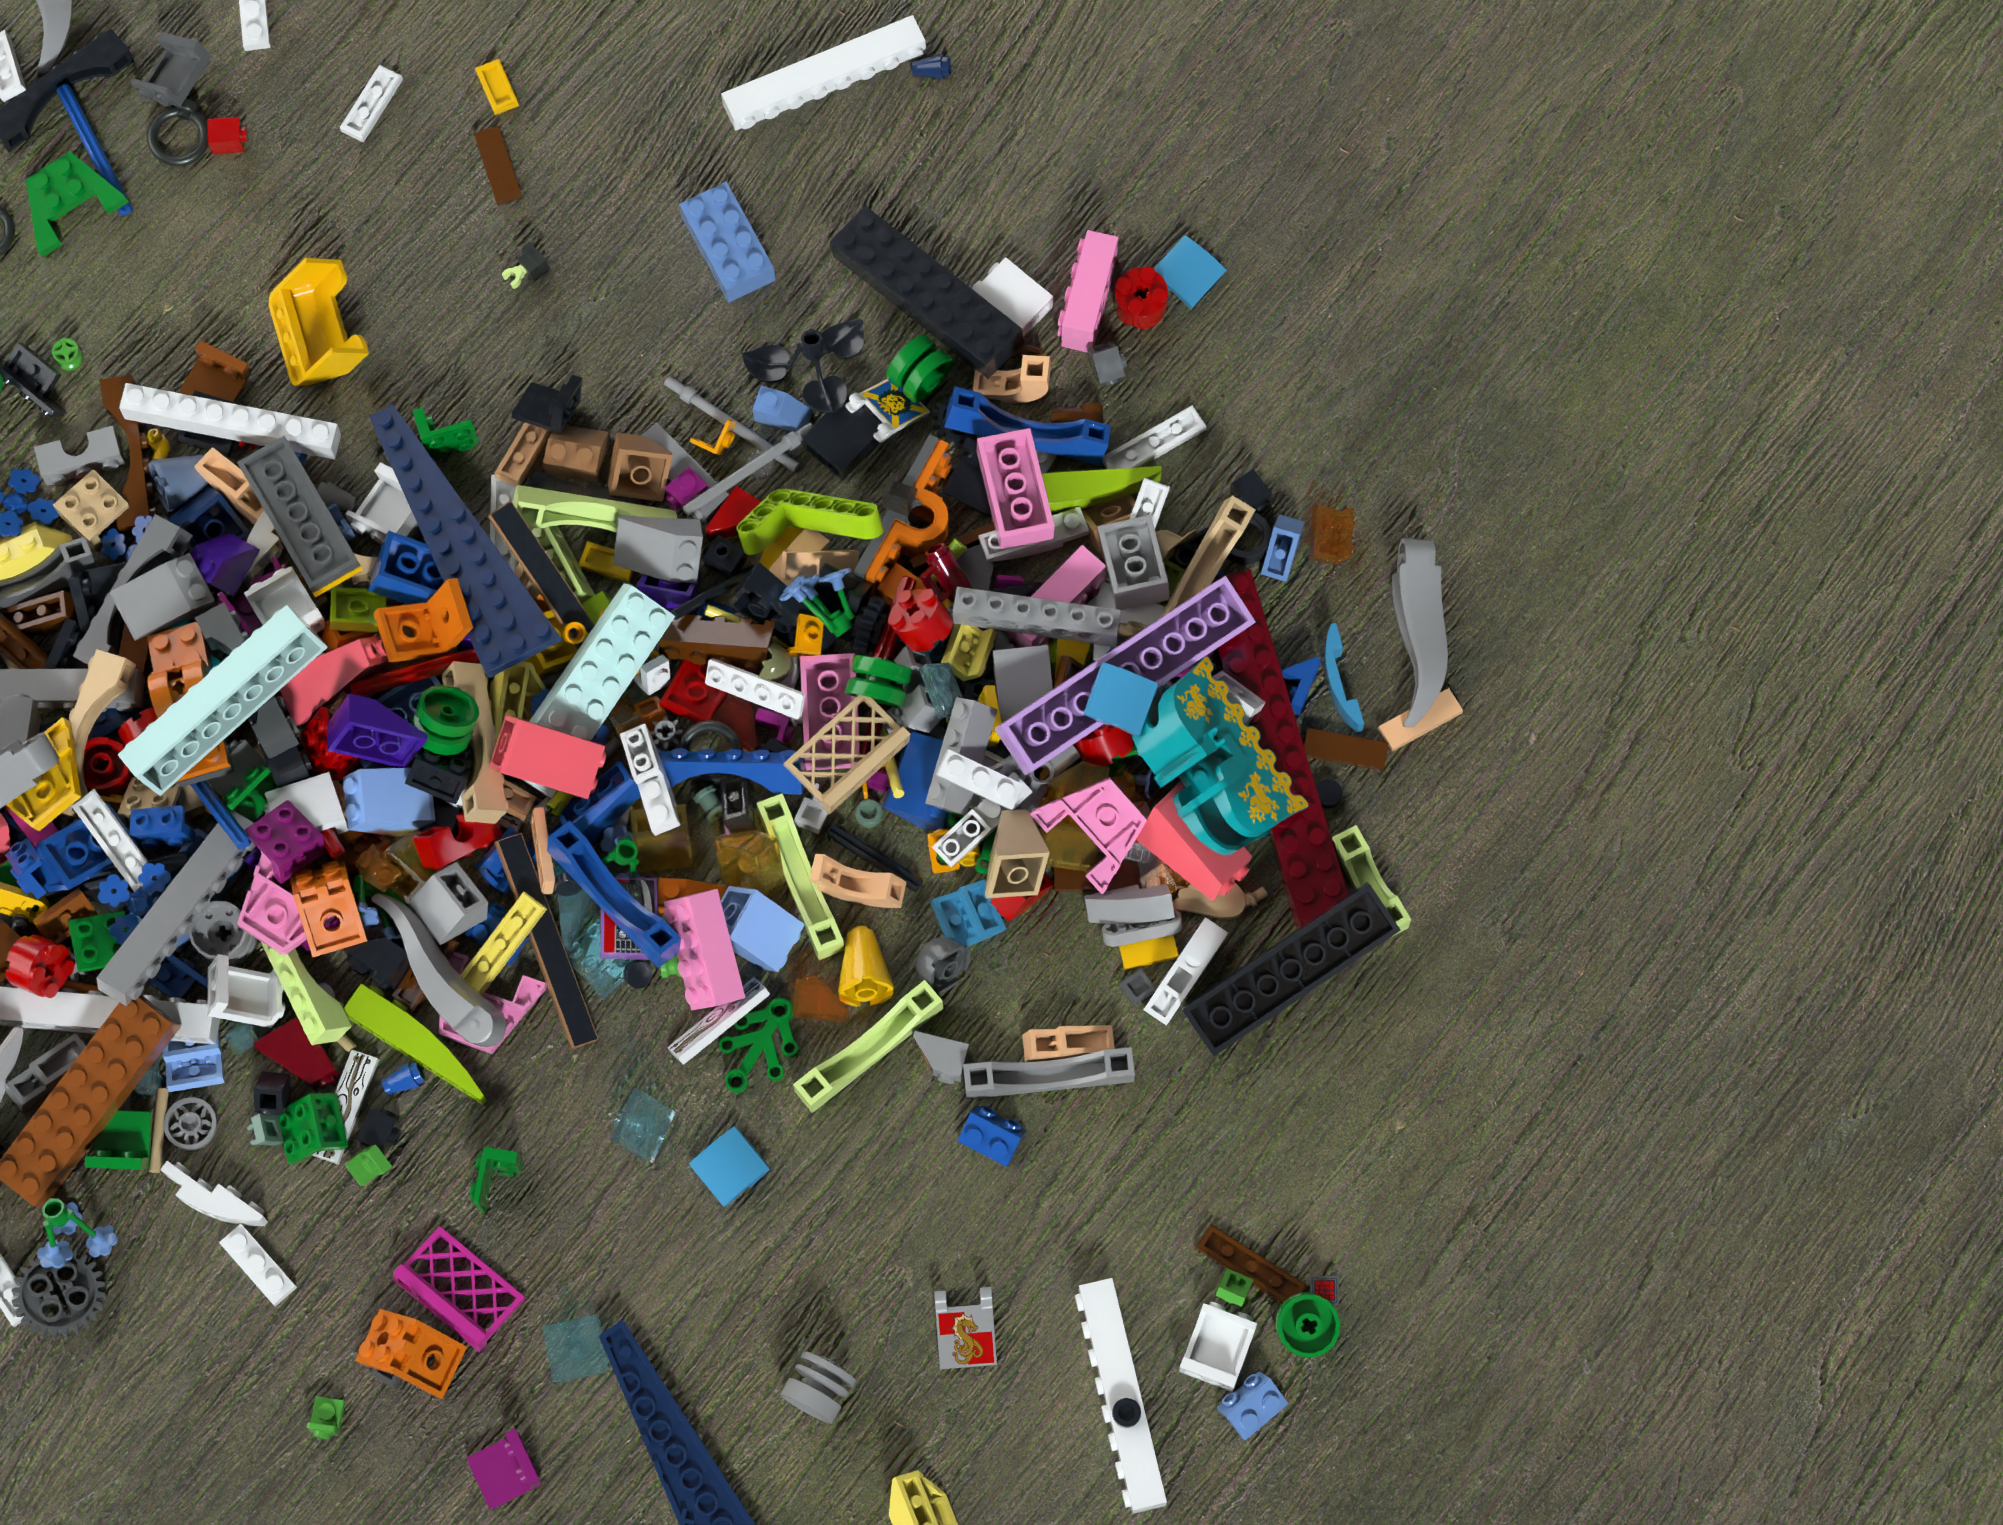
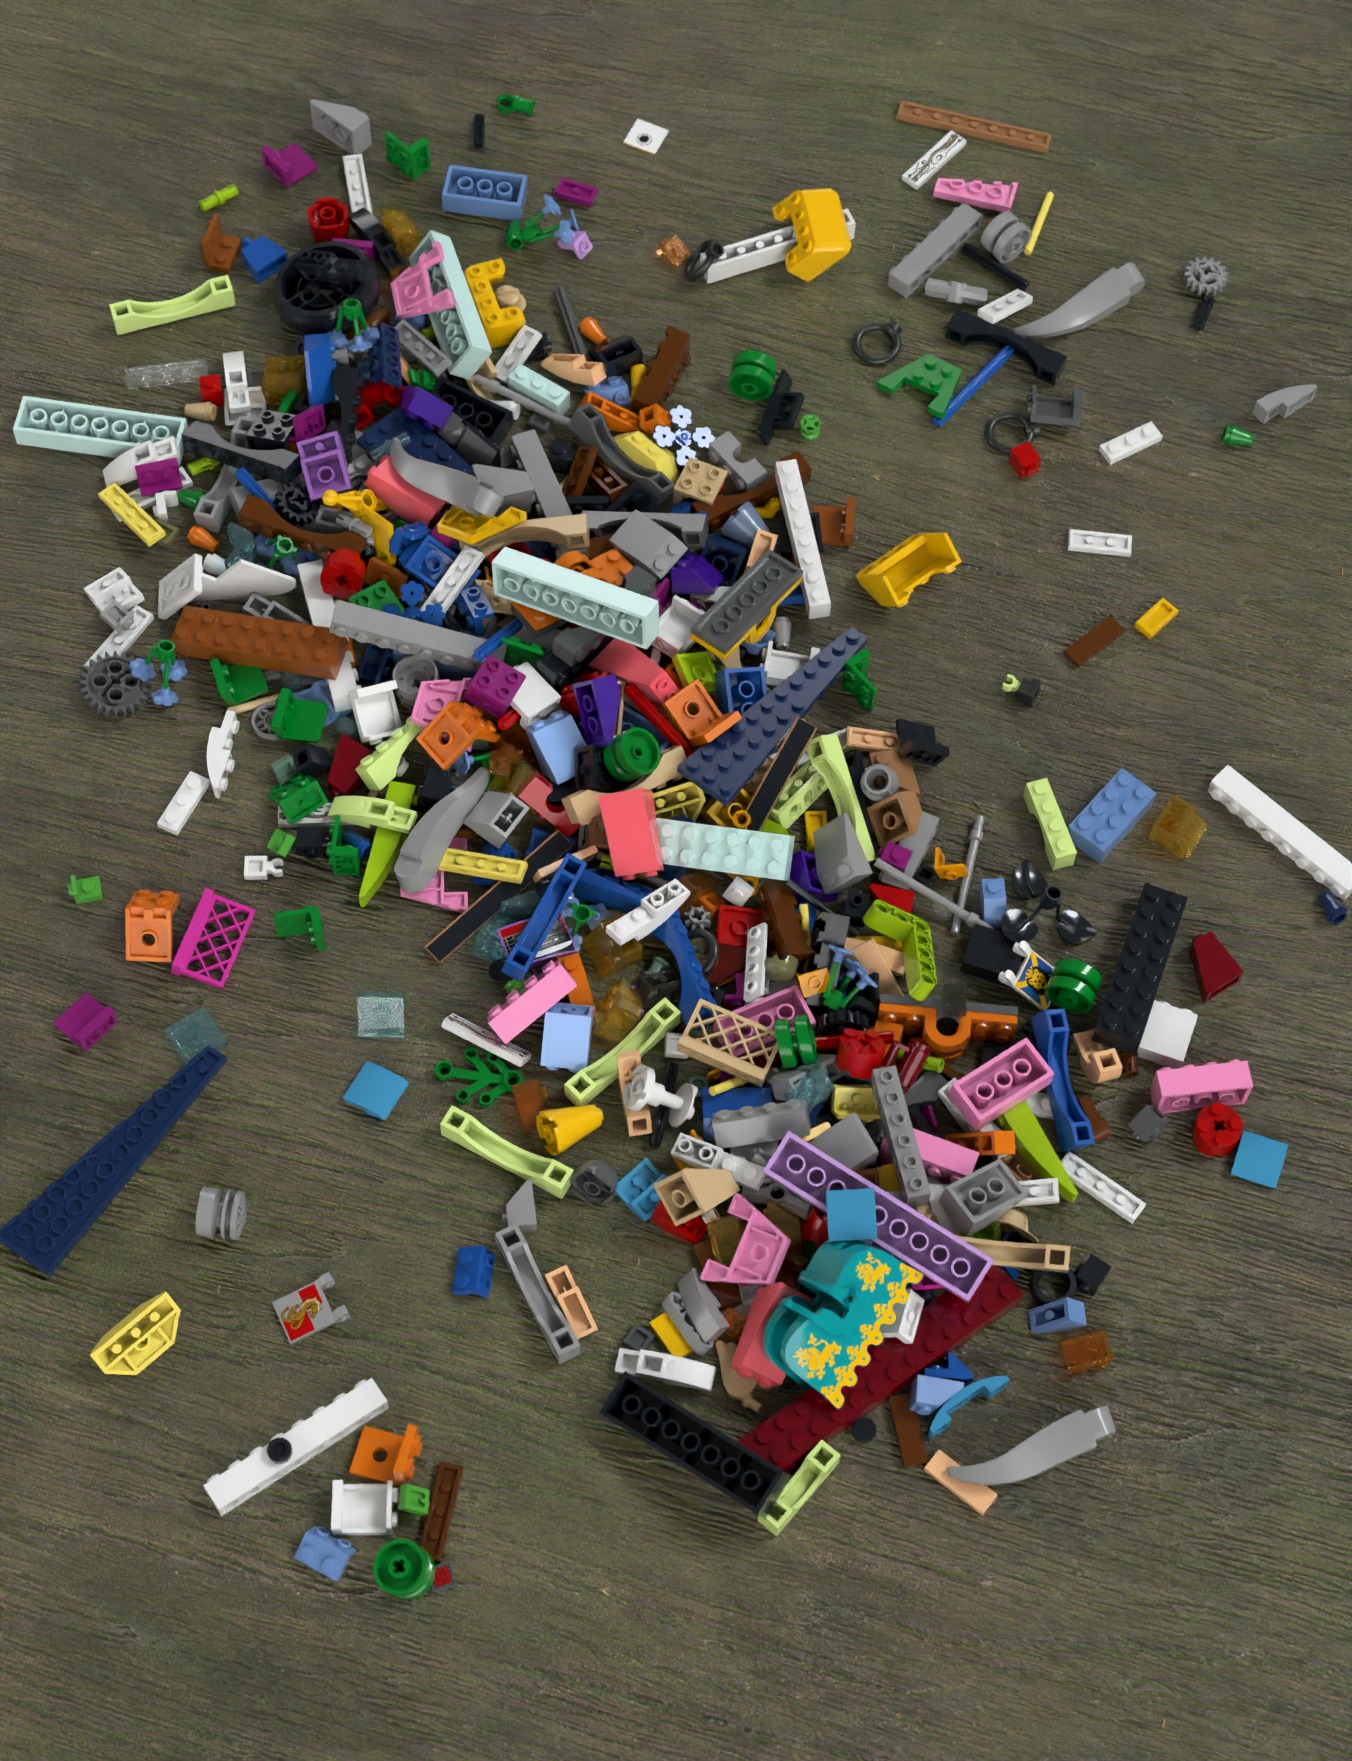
camera: 65 degrees right, 10 degrees down
(210, 1087) = (298, 718): none -> green bracket
(378, 1045) = (373, 811): none -> yellowish green slope
(386, 1204) = (259, 867): none -> white plate
(426, 1098) = (343, 858): none -> green bracket
(604, 462) = (879, 771): none -> light grey piece
(681, 306) = (1057, 839): none -> yellowish green arch
(709, 463) = (929, 871): none -> black bush
(772, 179) = (1178, 828): none -> clear yellow slope
(864, 866) = (645, 1090): none -> white piece
(950, 218) = (1213, 966): none -> dark red slope
(979, 779) = (744, 1141): white plate -> none
(1069, 534) = (986, 1143): none -> orange slope
(1178, 1286) = (400, 1455): none -> orange bracket
(1320, 708) = (931, 1393): none -> medium blue slope

